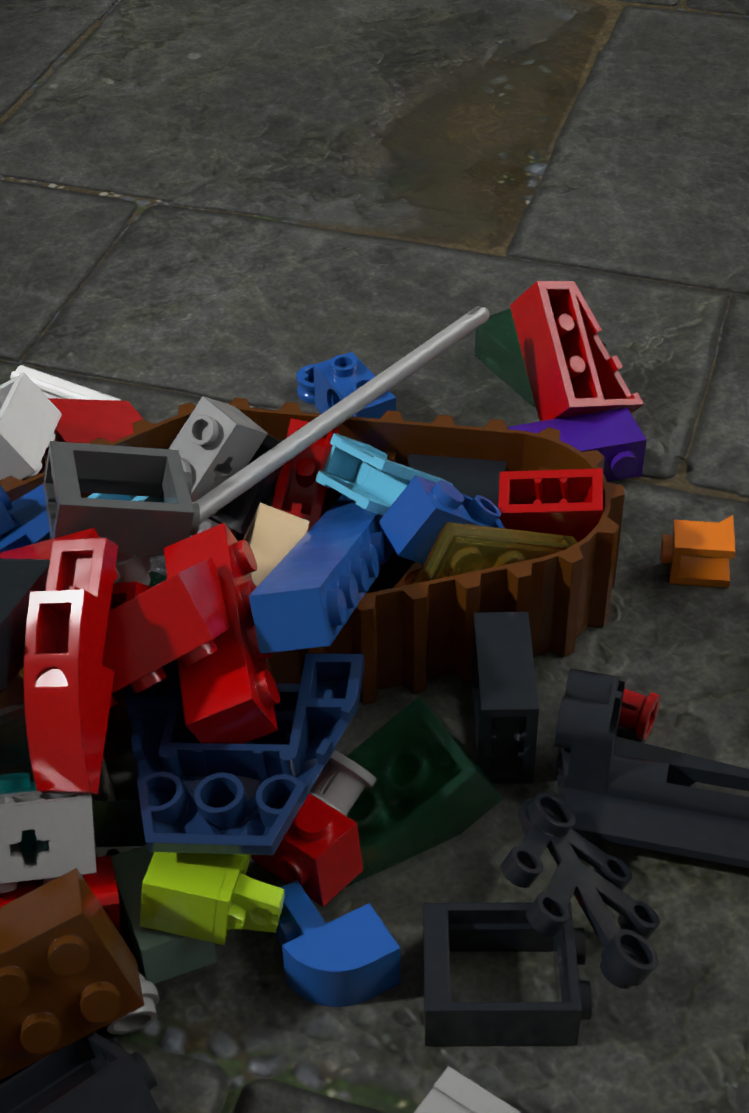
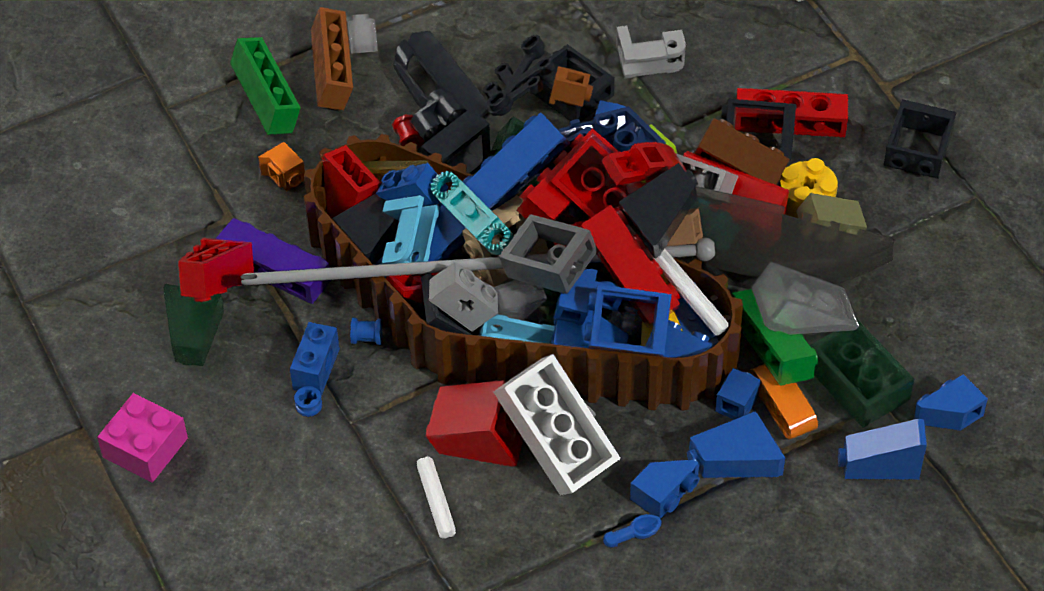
camera: 135 degrees left, 10 degrees up
(281, 503) = (471, 212): none -> teal plate
(424, 255) = (142, 437): none -> dark pink brick
(455, 868) = (571, 87): none -> dark orange brick

